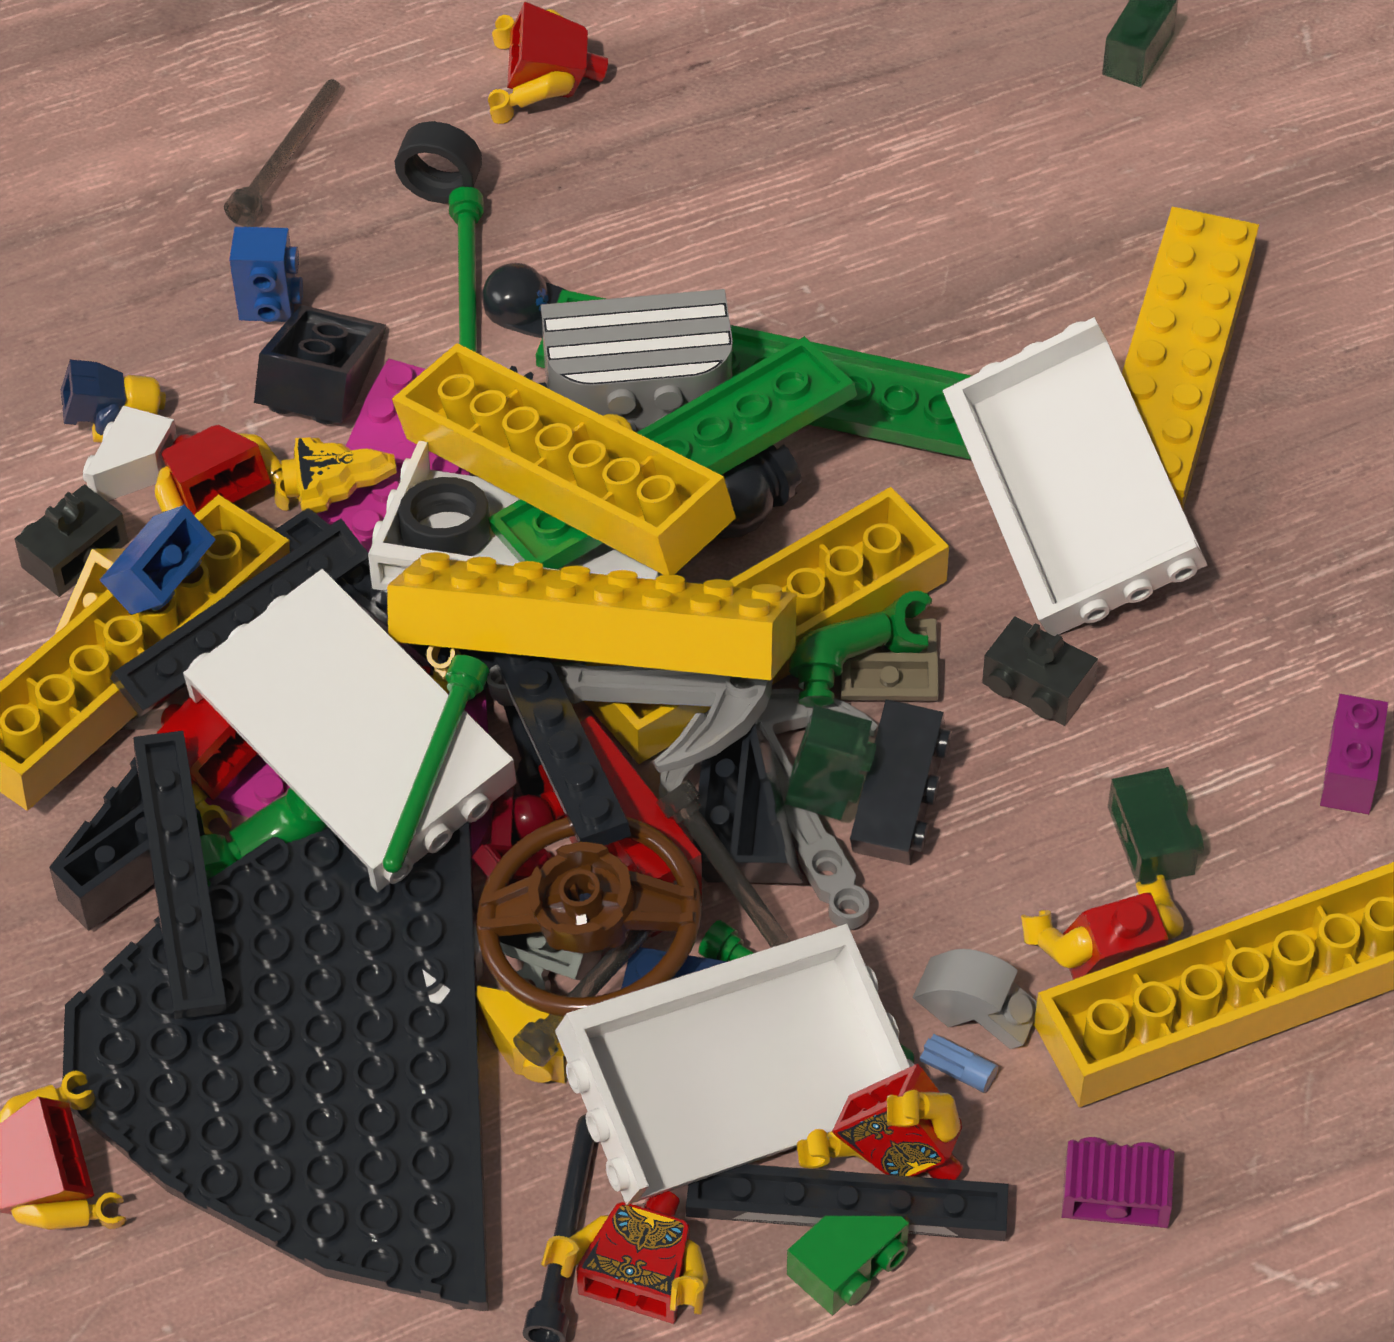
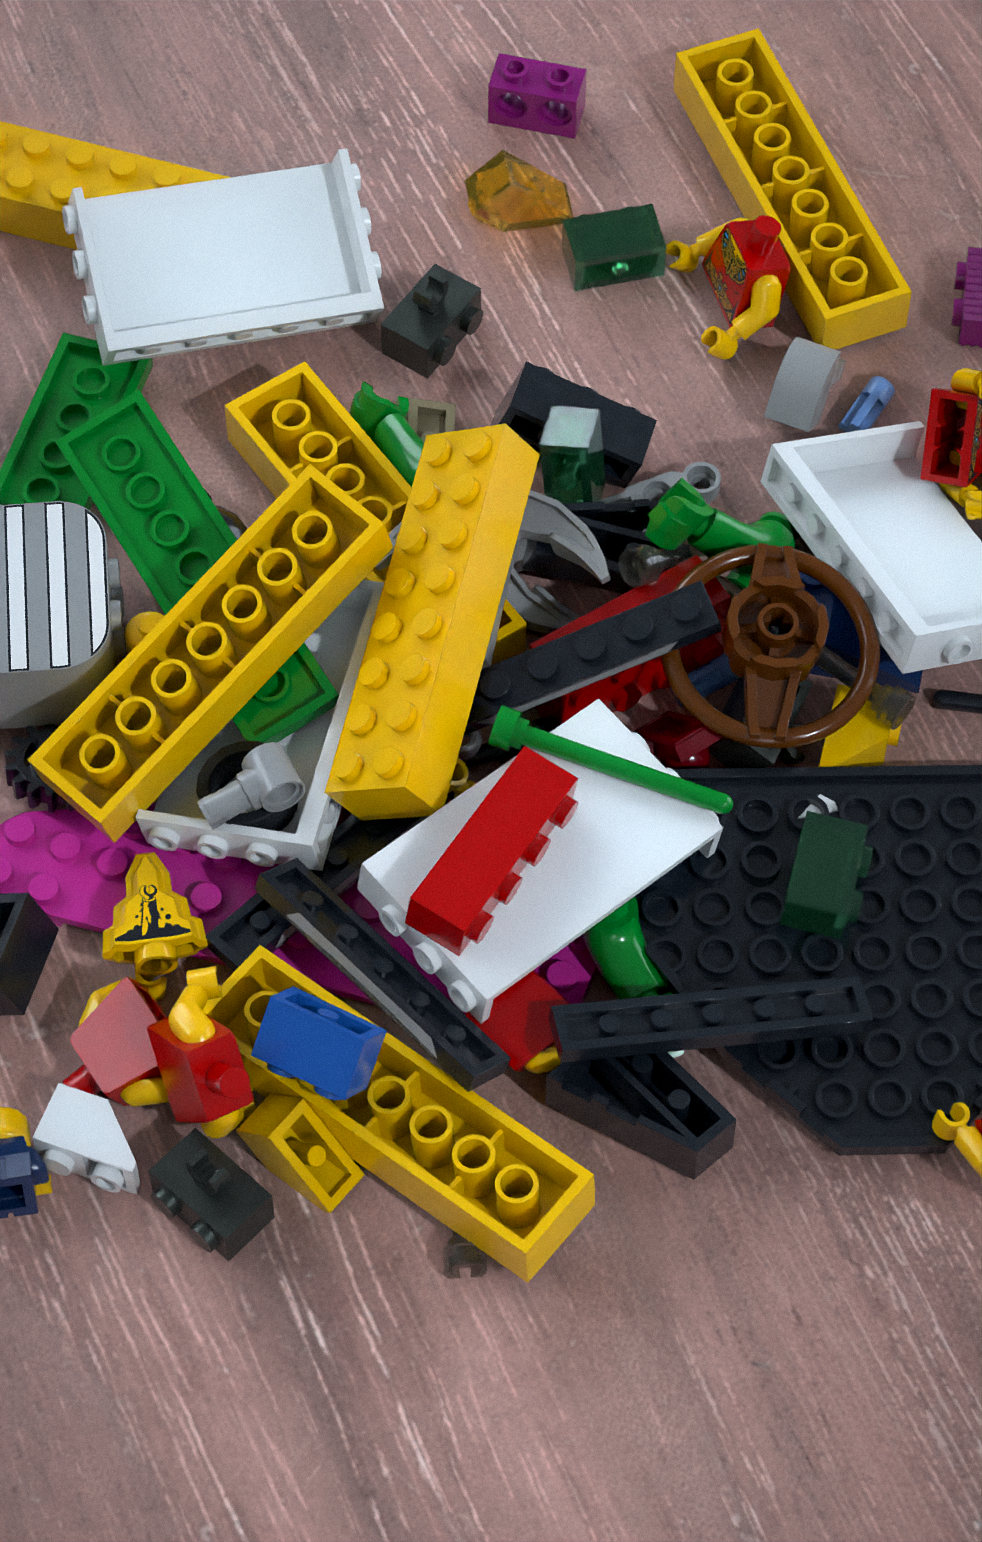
camera: 90 degrees left, 5 degrees up
(158, 481) = (201, 1060): none -> red torso
(323, 659) = (492, 851): none -> red brick
(336, 972) = (825, 875): none -> clear green brick
(422, 506) = (265, 782): none -> light grey pin
(728, 920) = (686, 515): none -> green piece
(1214, 743) = (516, 195): none -> clear yellow slope

